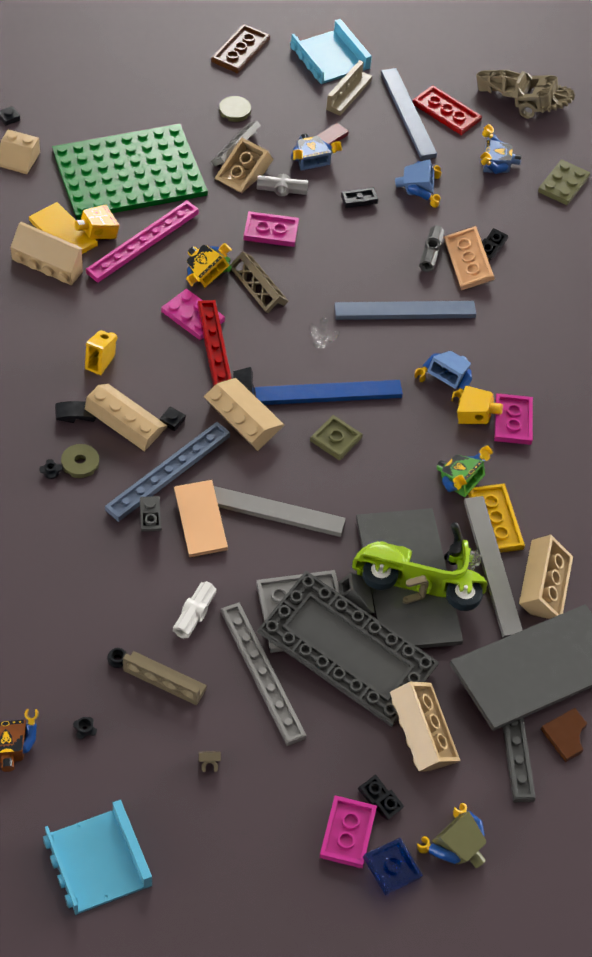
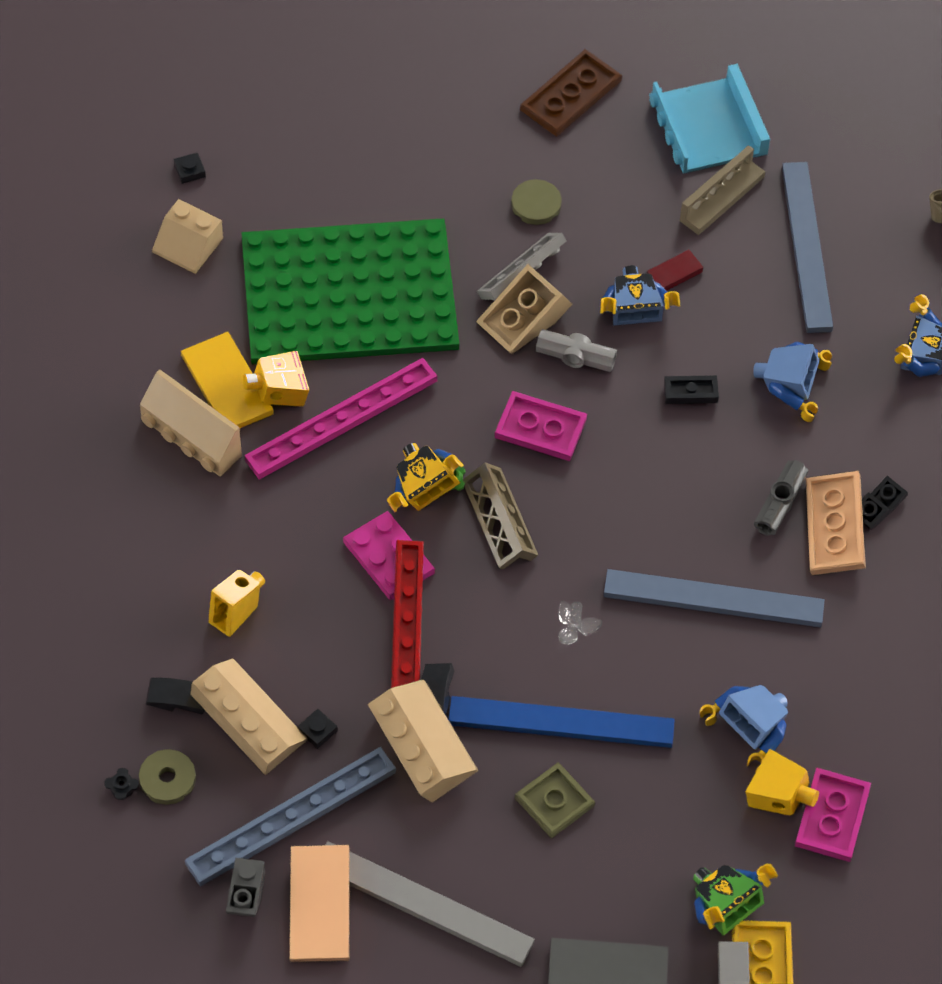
camera: 15 degrees right, 5 degrees up
(447, 110) = (870, 248): red tile -> none

